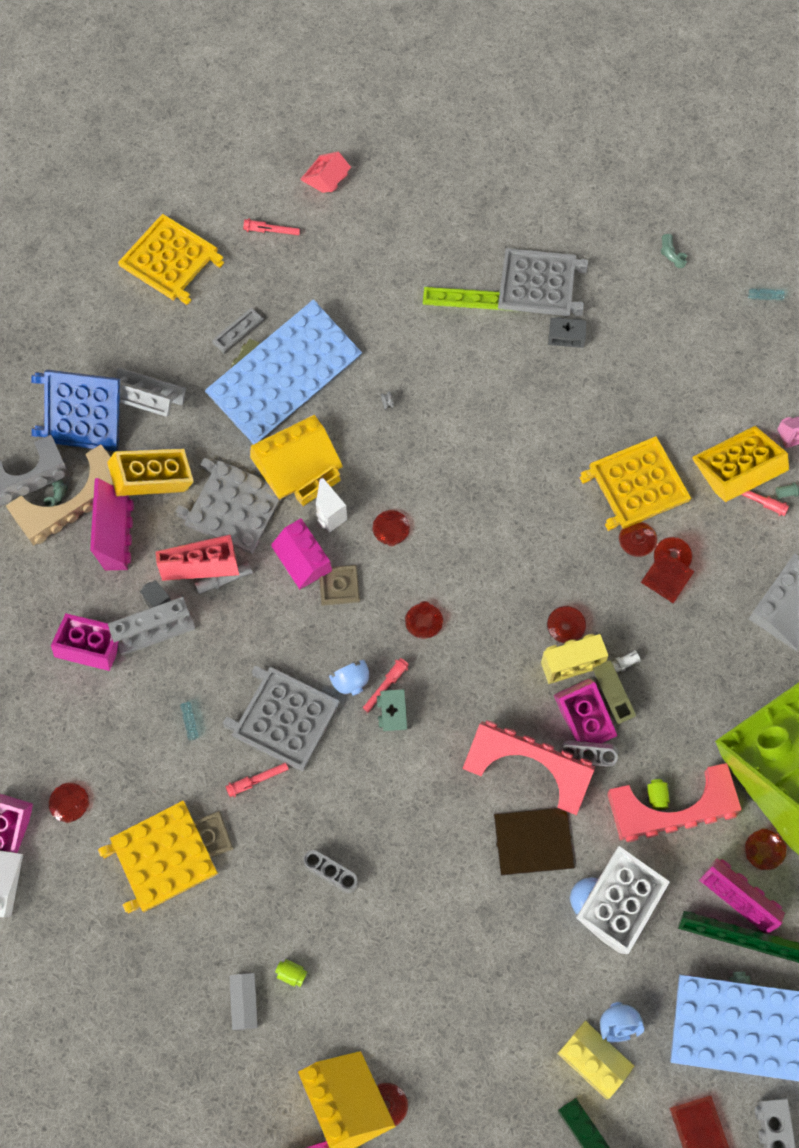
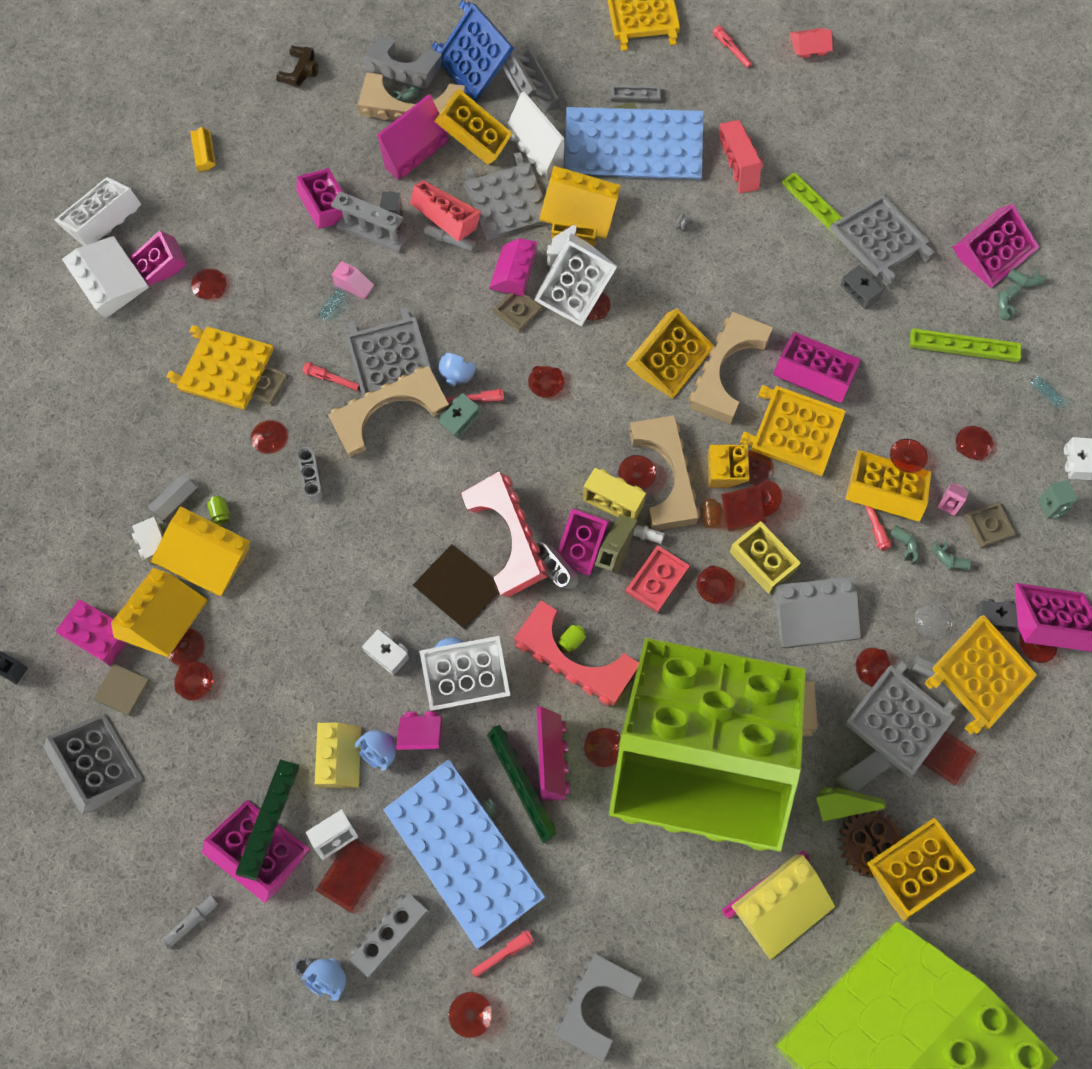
camera: 45 degrees right, 0 degrees up
(186, 686) = (352, 280): none -> bright pink slope
(208, 434) = (536, 136): none -> white slope
(264, 884) = (271, 443): none -> clear red dish
(266, 1053) = (148, 535): none -> white brick
(316, 797) = (418, 388): none -> tan arch
(320, 1019) = (200, 551): none -> yellow slope
(367, 521) = (575, 280): none -> white slope
(374, 309) = (741, 155): none -> coral wedge
(424, 1123) = (193, 680): none -> clear red dish
(489, 511) = (670, 353): none -> yellow slope
(552, 515) = (710, 395): none -> tan arch
(553, 950) = (390, 661): none -> white brick
(557, 579) = (663, 437): none -> tan arch
(601, 422) = (816, 367): none -> dark pink slope
(622, 216) = (996, 245): none -> dark pink slope
(623, 556) = (727, 465): none -> yellow slope
(640, 977) = (420, 730): none -> dark pink slope
(649, 603) = (711, 513): none -> clear orange brick
(659, 1121) = (331, 834): none -> white brick
(666, 689) = (657, 579): none -> coral plate
(667, 225) = (1026, 281): none -> sand green piece
(679, 311) = (965, 345): none -> lime plate
(708, 652) = (715, 584): none -> clear red dish
(721, 599) = (764, 557): none -> light yellow brick
(733, 422) = (908, 448): none -> clear red dish
(760, 377) = (974, 442): none -> clear red dish

